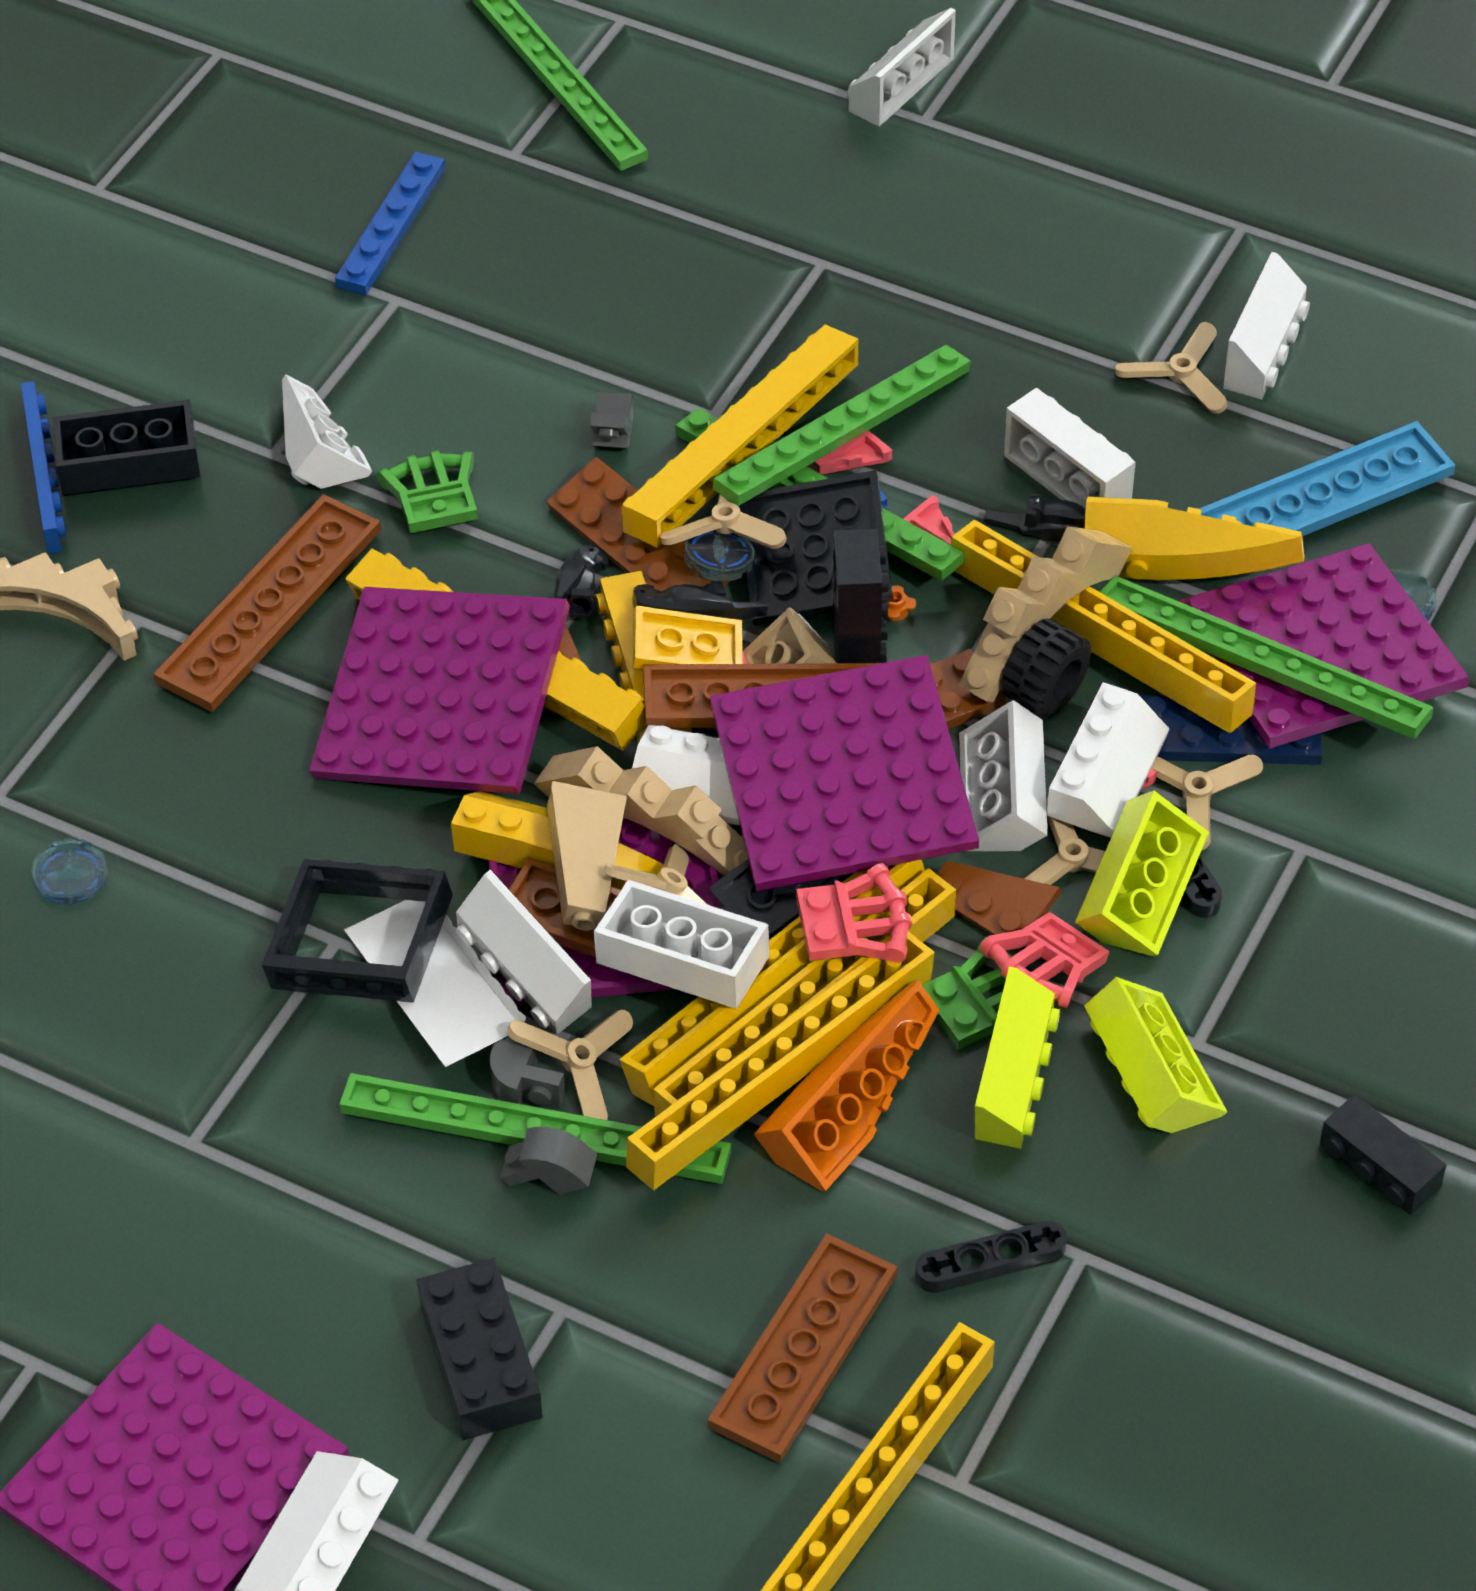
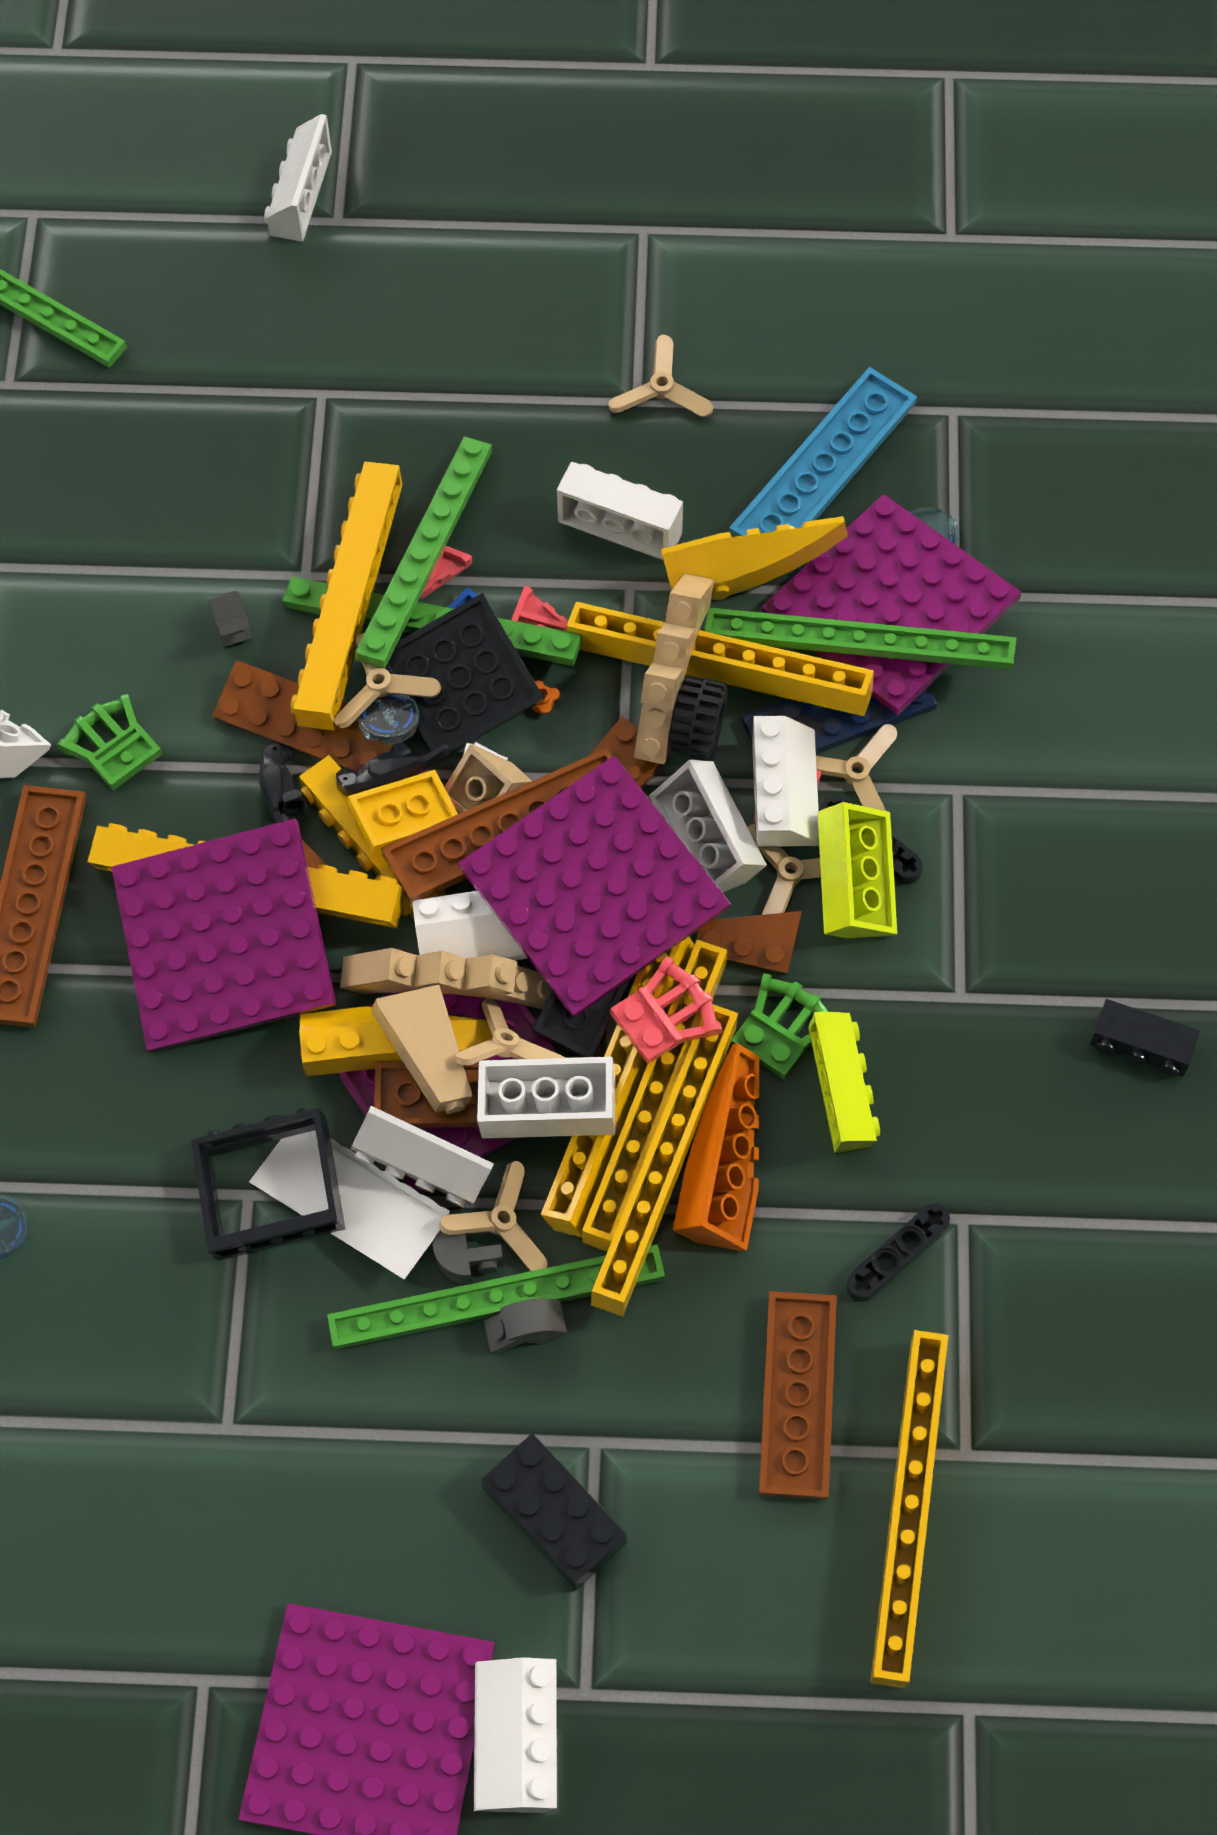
camera: 25 degrees left, 15 degrees up
(859, 597) = (529, 721): black brick -> none
(1042, 518) = (624, 573): black animal -> none
(1056, 943) = (825, 960): coral plate -> none
(1153, 1057) = (938, 1027): neon yellow slope -> none
(1265, 329) = (715, 328): white slope -> none

